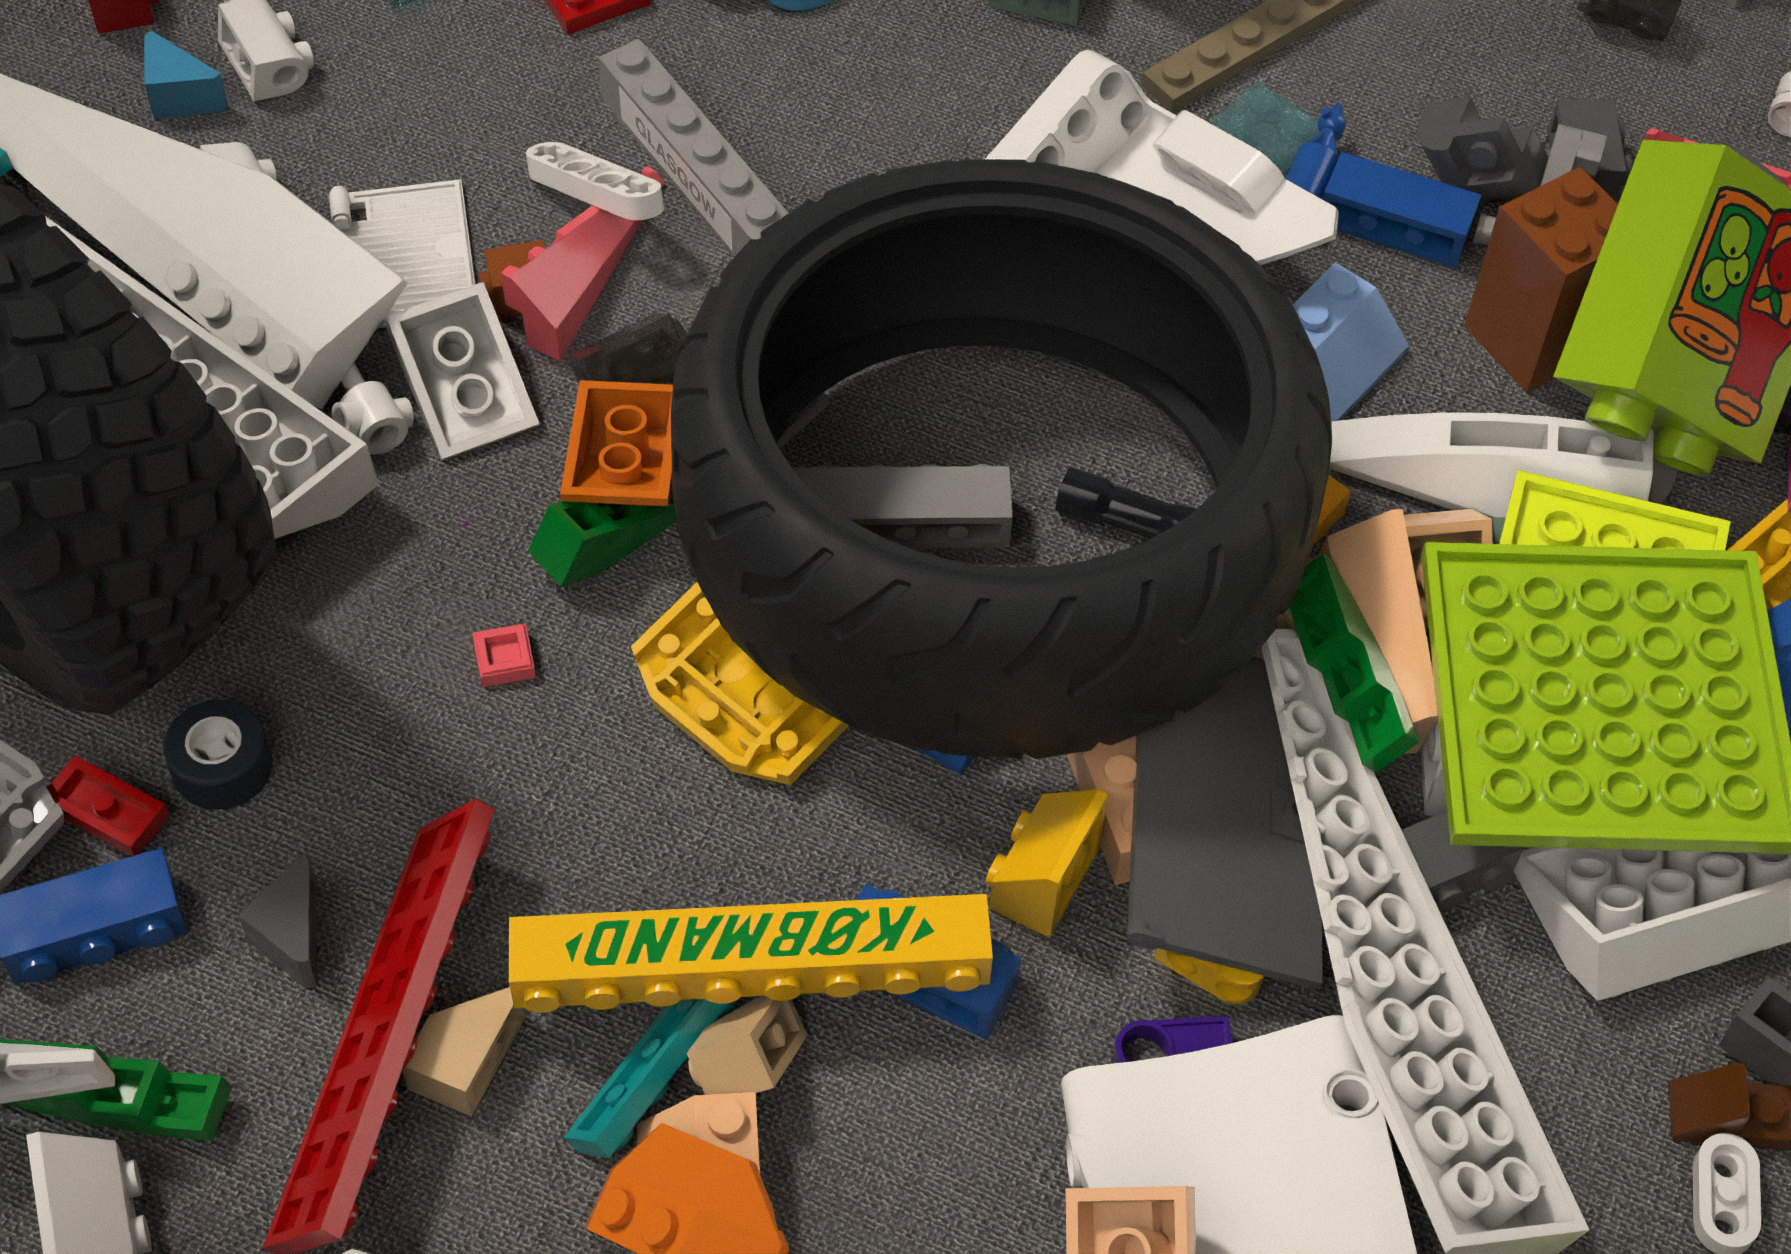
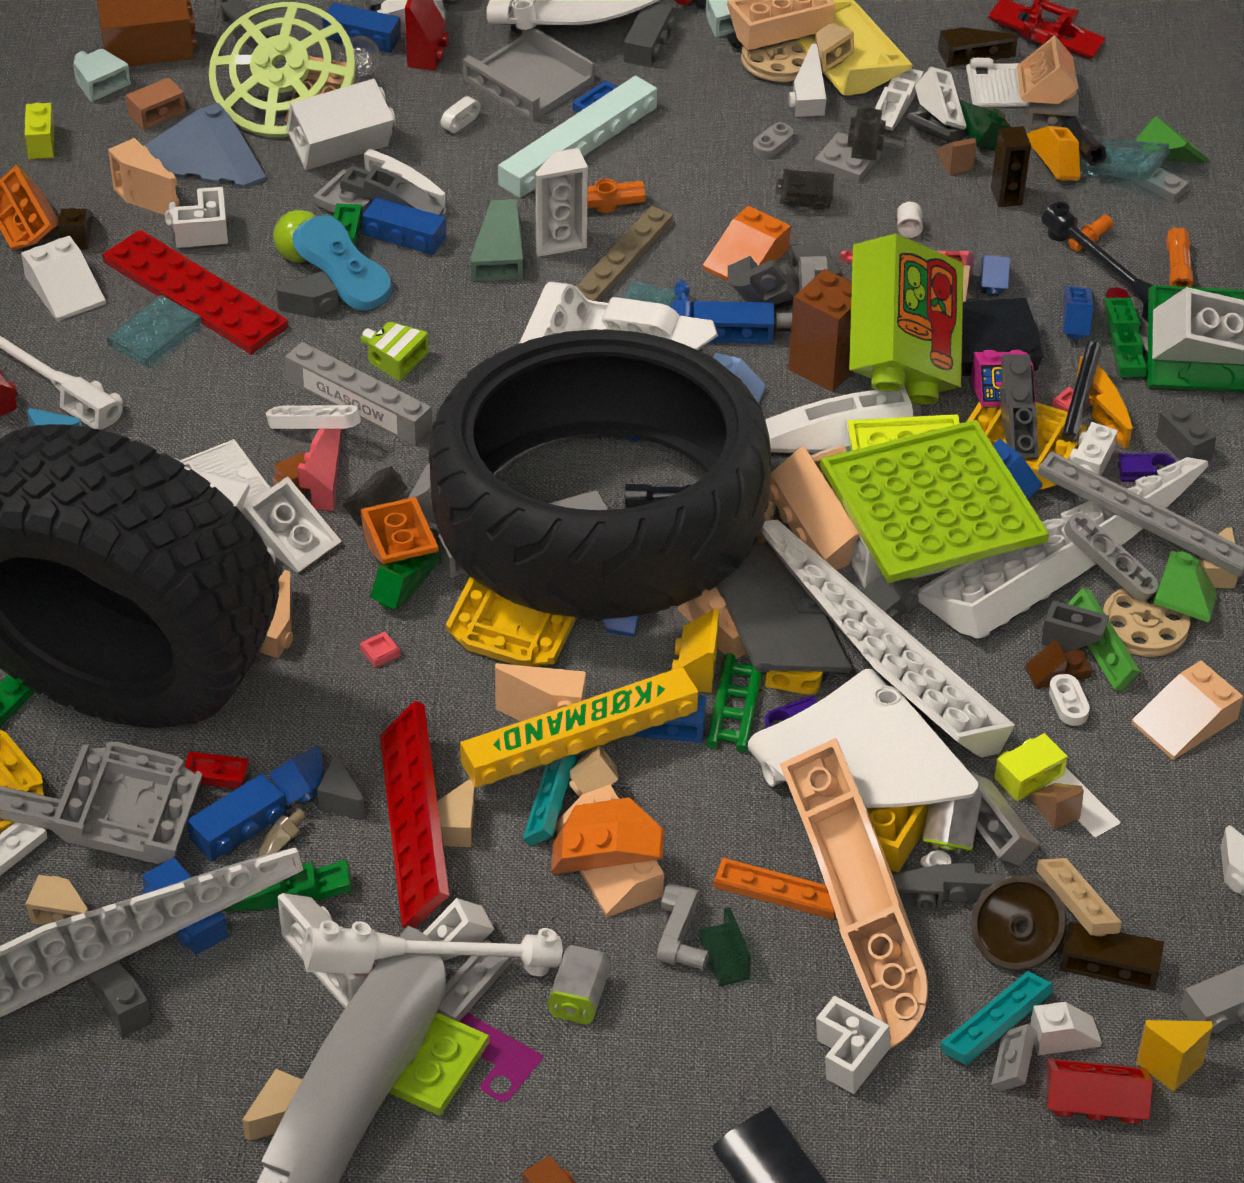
camera: 20 degrees left, 10 degrees down
(147, 975) = (282, 832): none -> dark tan bar
(217, 754) = (261, 731): black wheel -> none
(229, 872) = (300, 776): none -> blue slope
(346, 544) = (280, 631): none -> light nougat slope
(719, 852) = (532, 691): none -> light nougat slope
(800, 93) = (396, 348): none -> lime torso
(1046, 986) = (721, 711): none -> green bar
(1352, 665) = (807, 526): green slope -> none
(1497, 61) = (747, 235): none -> orange slope

